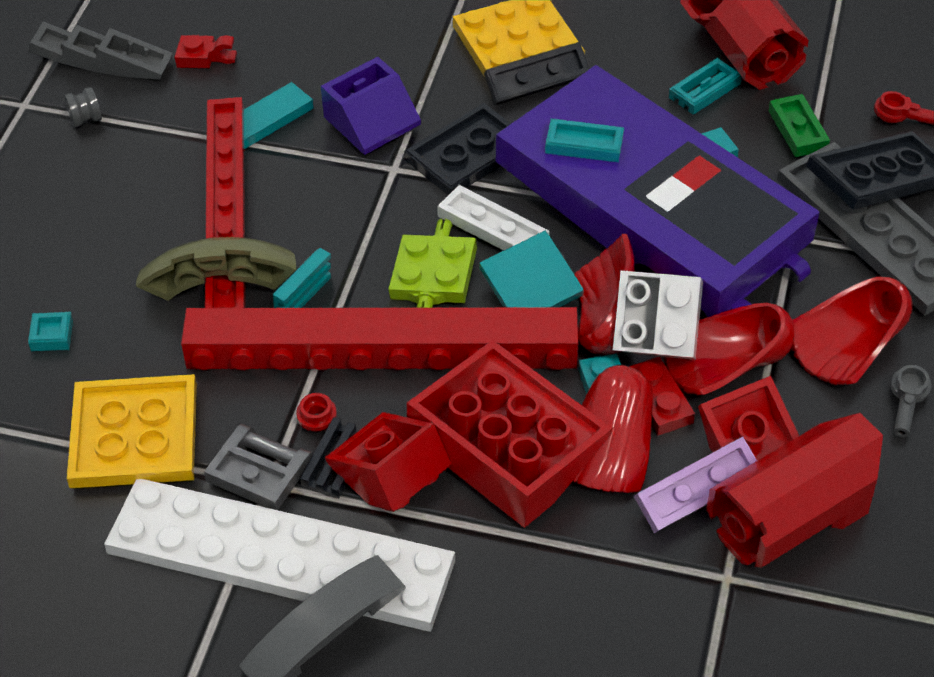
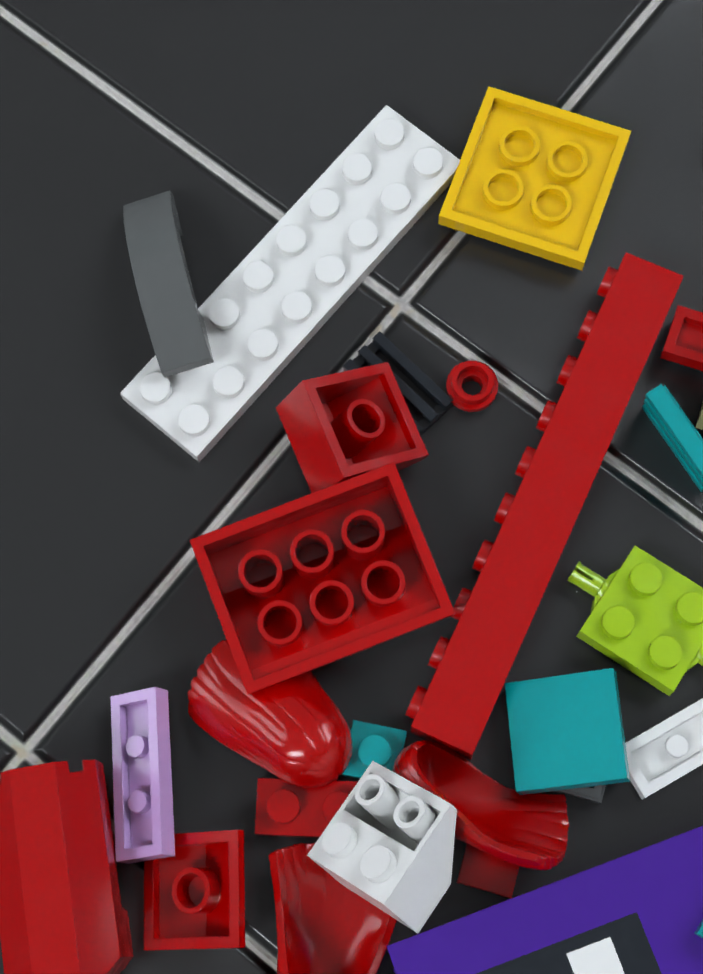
camera: 120 degrees right, 25 degrees up
(254, 475) = (408, 282): flat silver plate -> none

